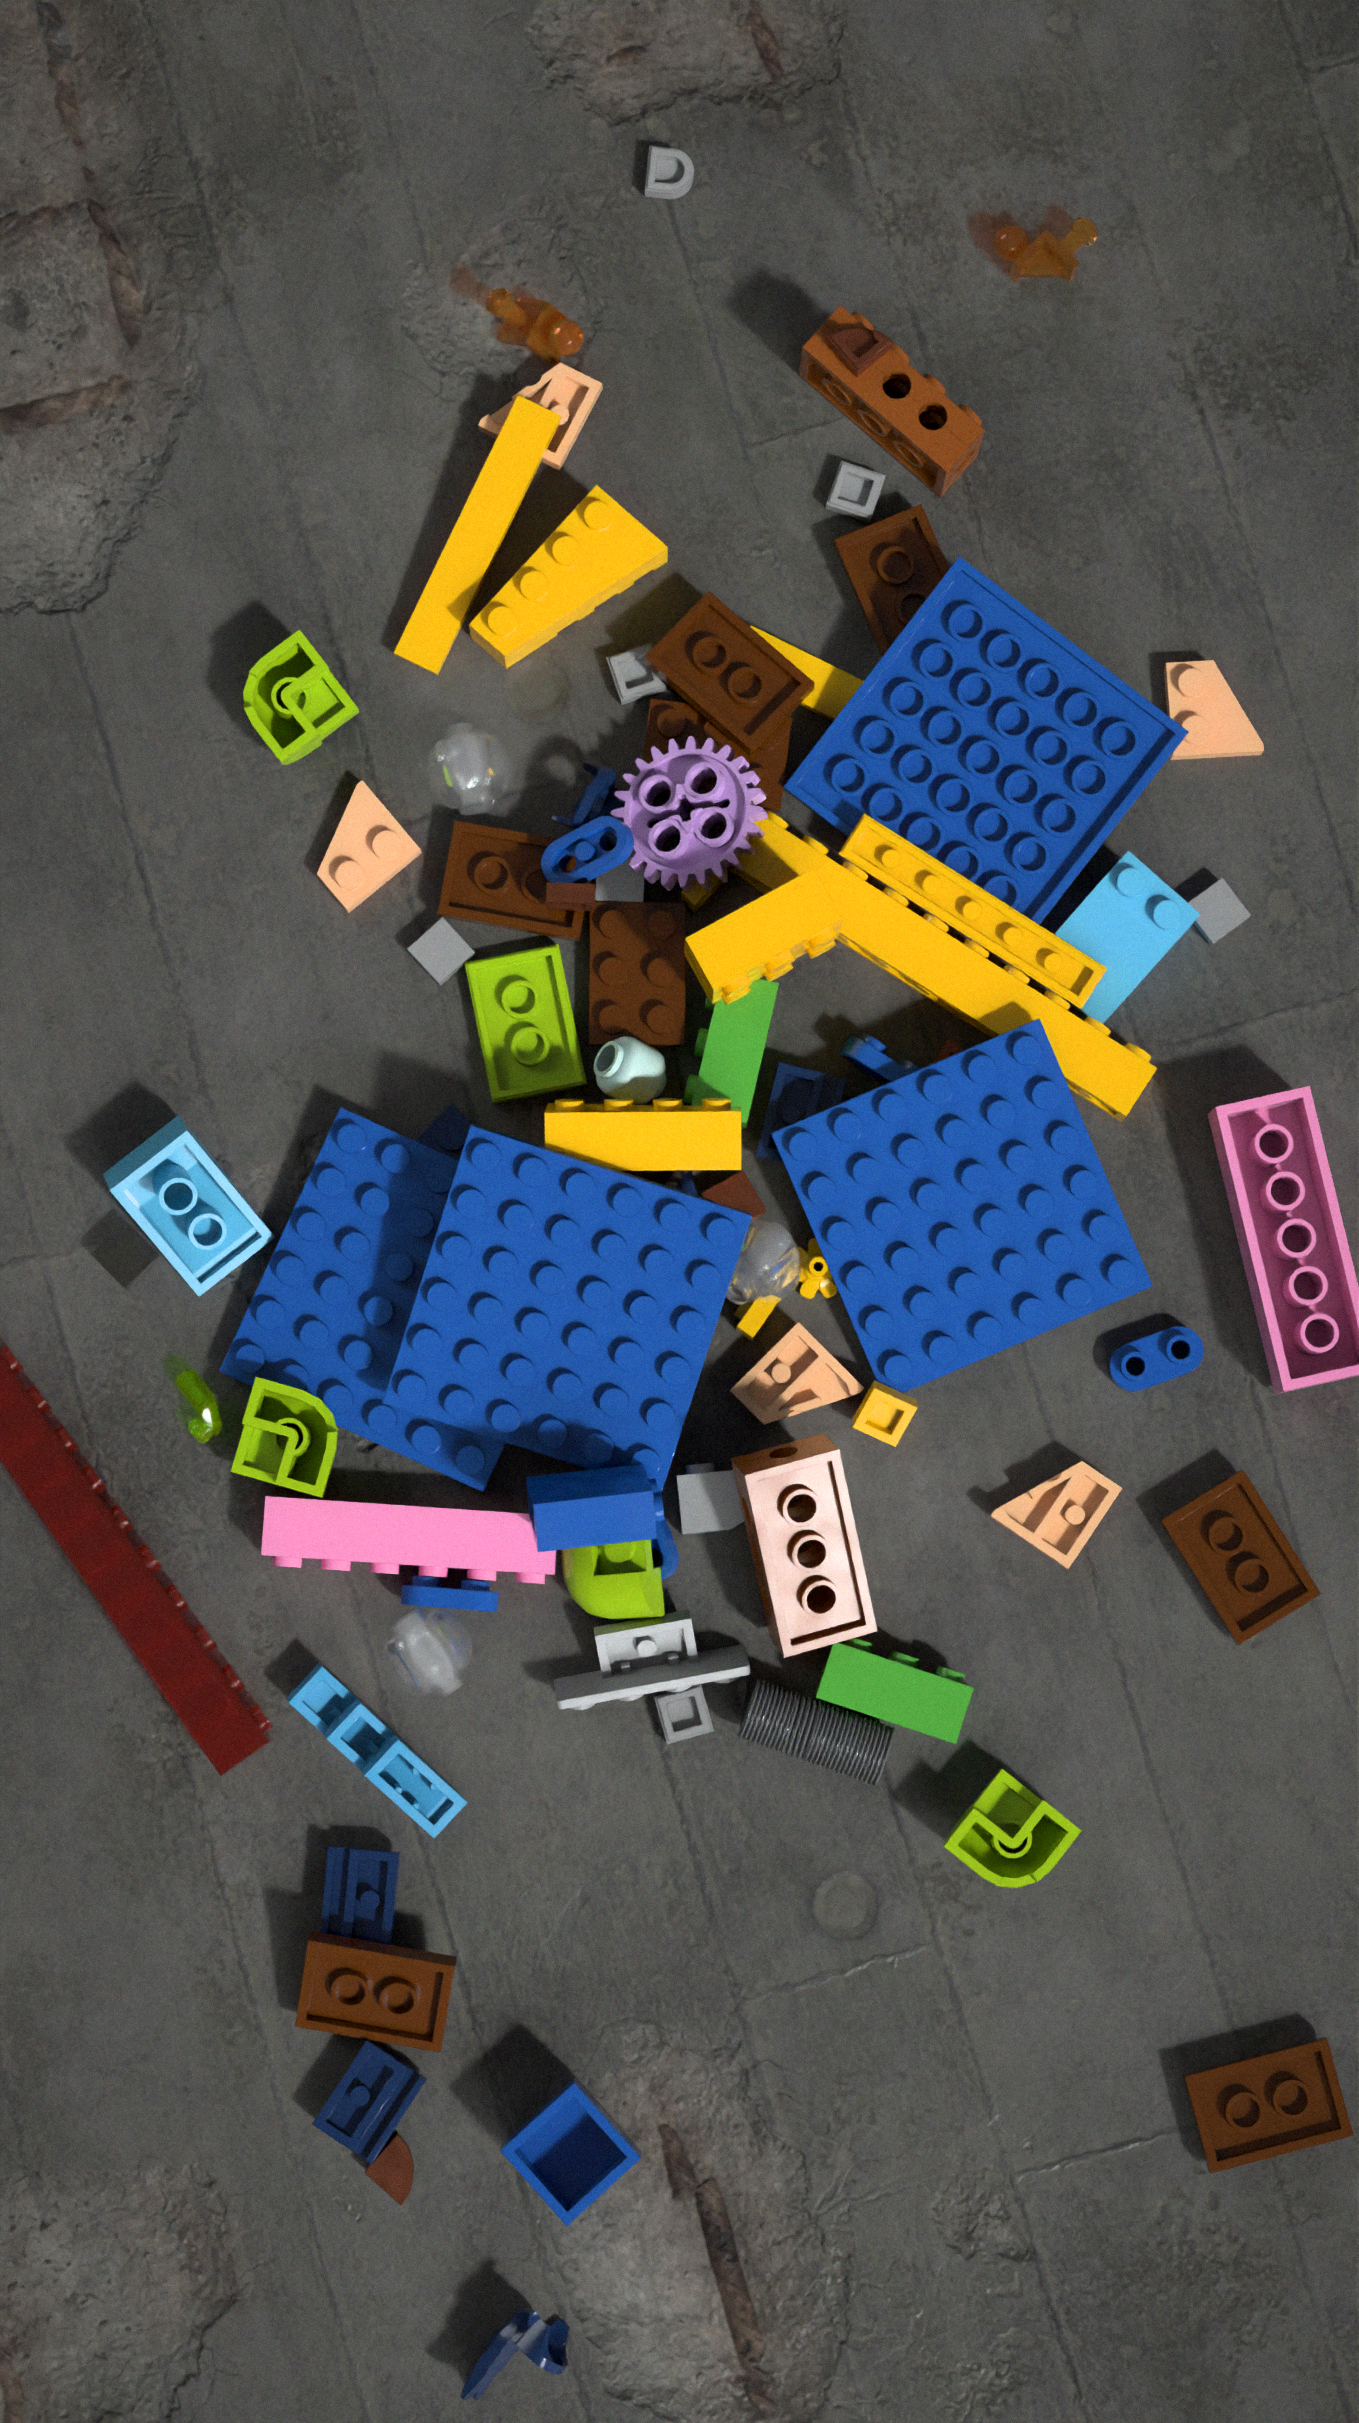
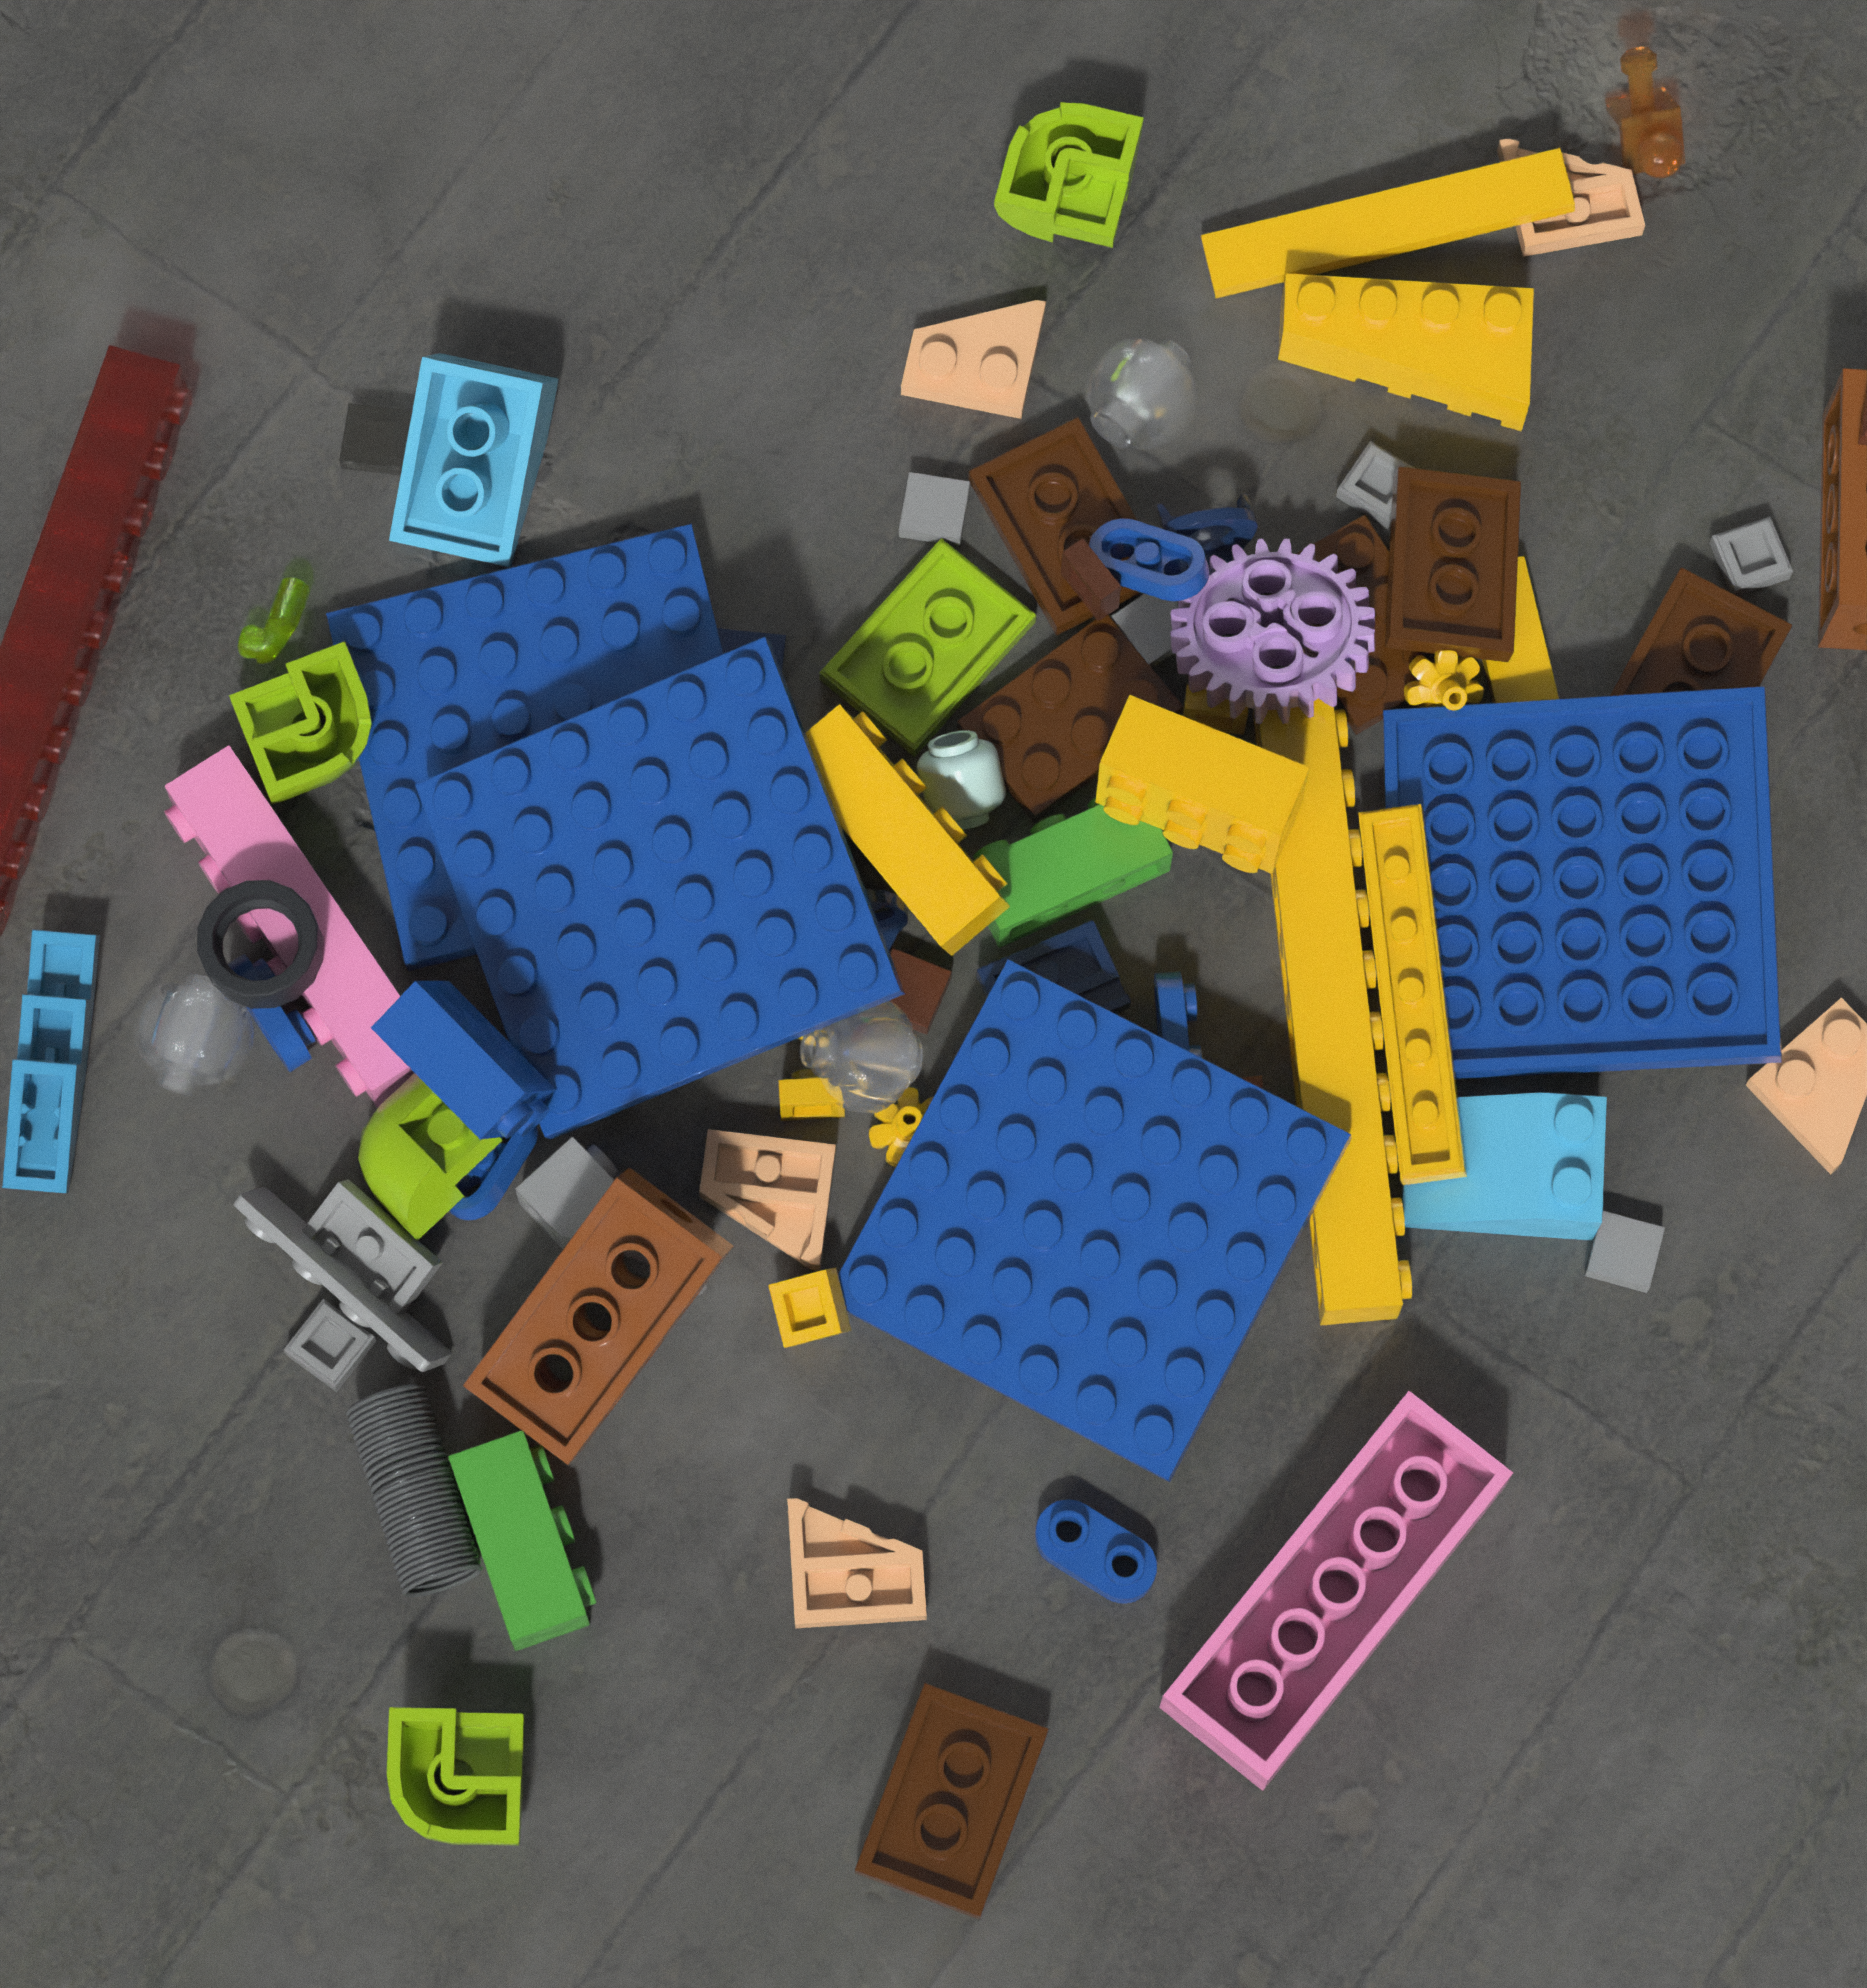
camera: 55 degrees right, 10 degrees down
(377, 1580) = (241, 900): none -> black tyre
(797, 738) = (1444, 682): none -> yellow plant

